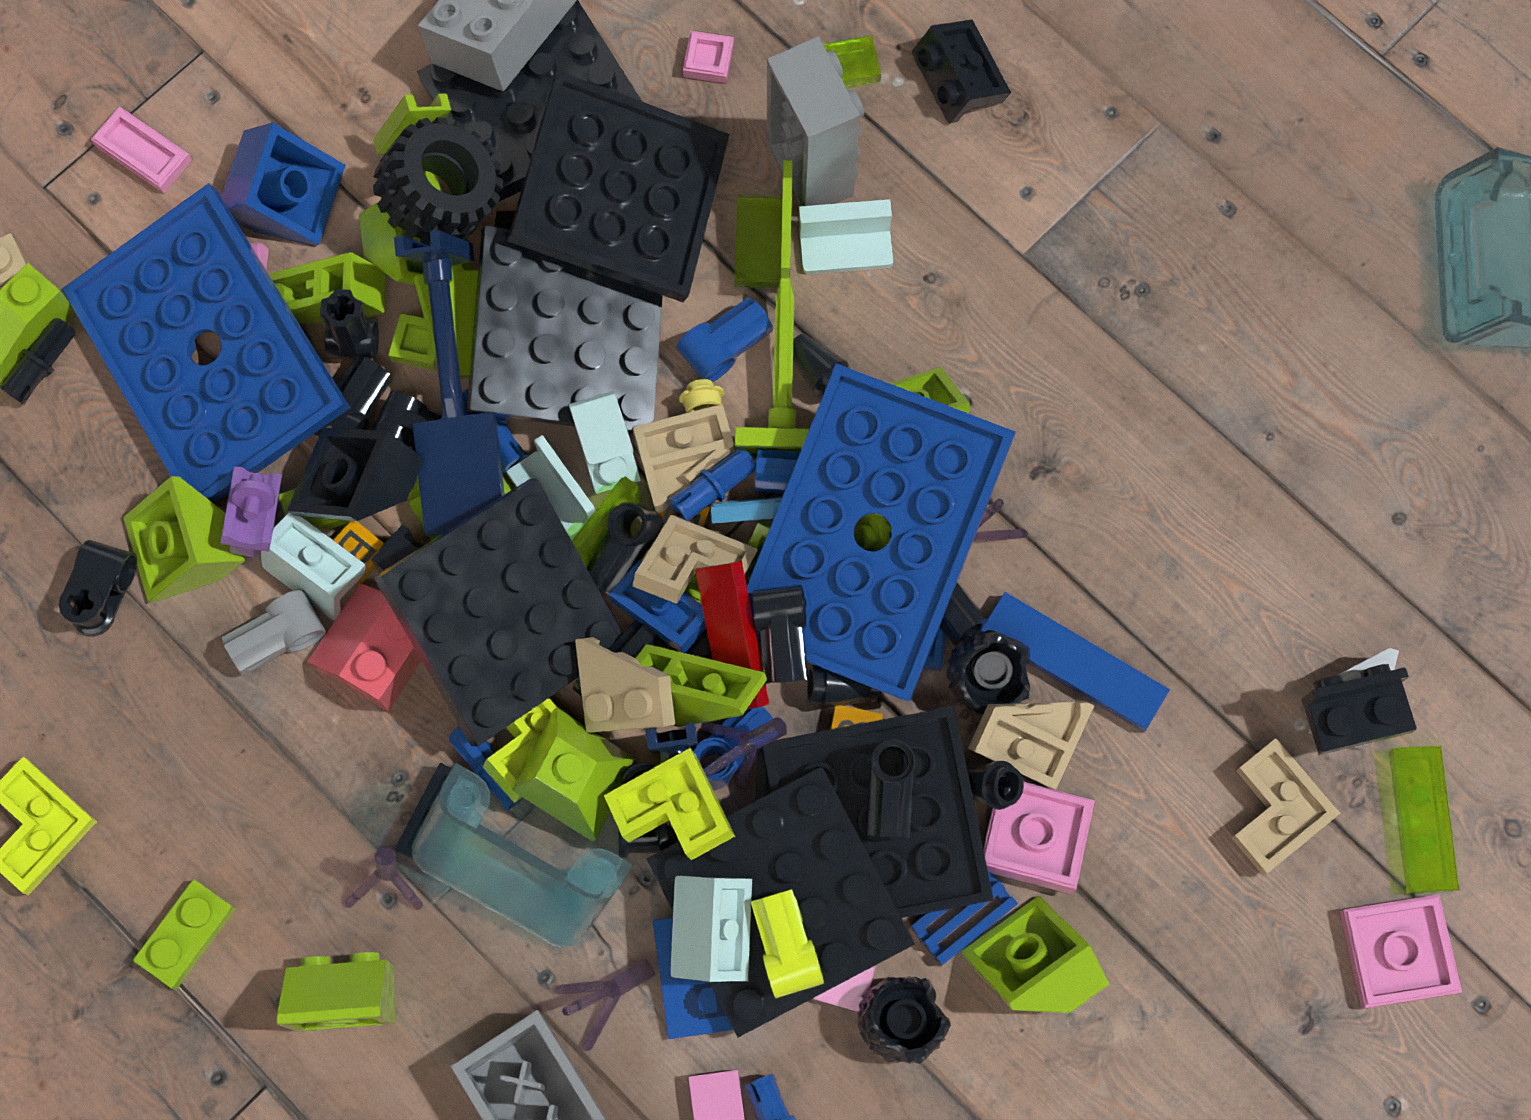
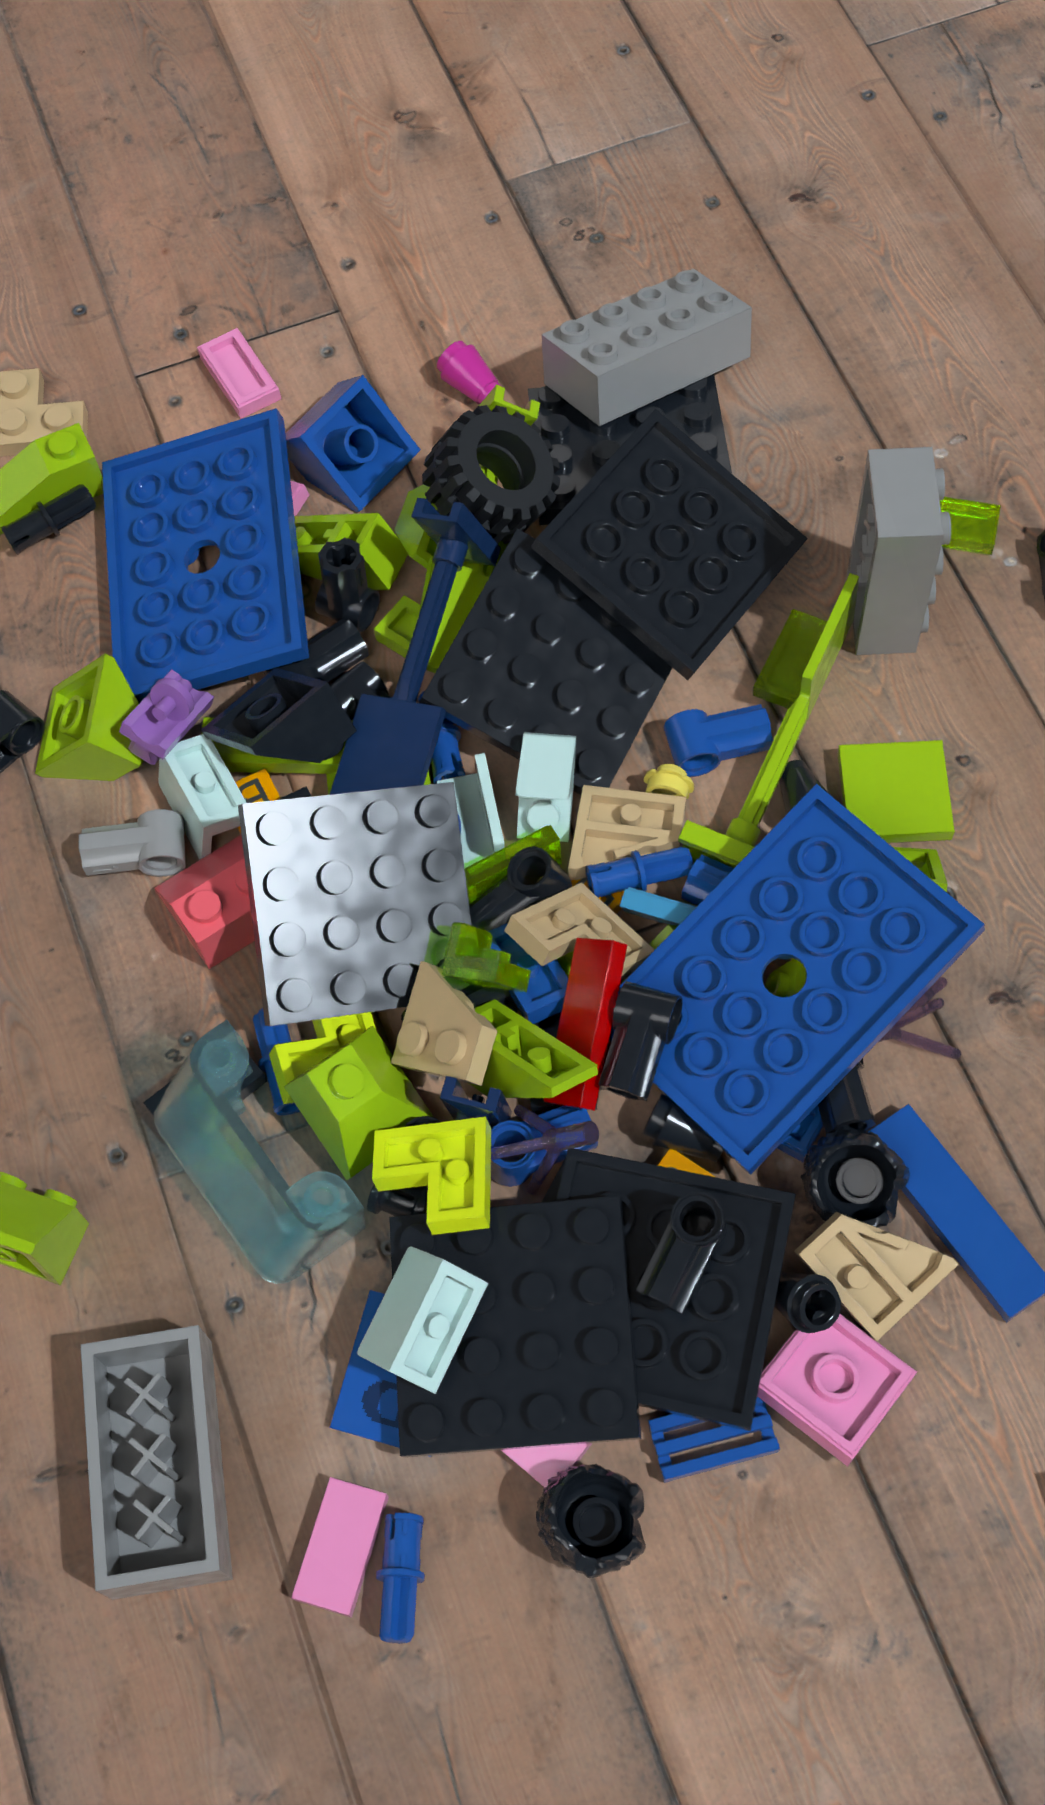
camera: 30 degrees right, 10 degrees down
(358, 76) = (466, 371): none -> dark pink cone
(386, 871) = (121, 1116): plant -> none
(610, 988) = (274, 1339): clear purple plant -> none
(618, 624) = (474, 962): none -> clear neon green bracket
(708, 57) = (822, 472): bright pink tile -> none
(789, 954) = (491, 1389): neon yellow piece -> none
(845, 236) = (889, 684): light aqua panel -> none
(888, 328) = (898, 789): none -> lime tile
(1037, 961) = (774, 1525): lime slope -> none

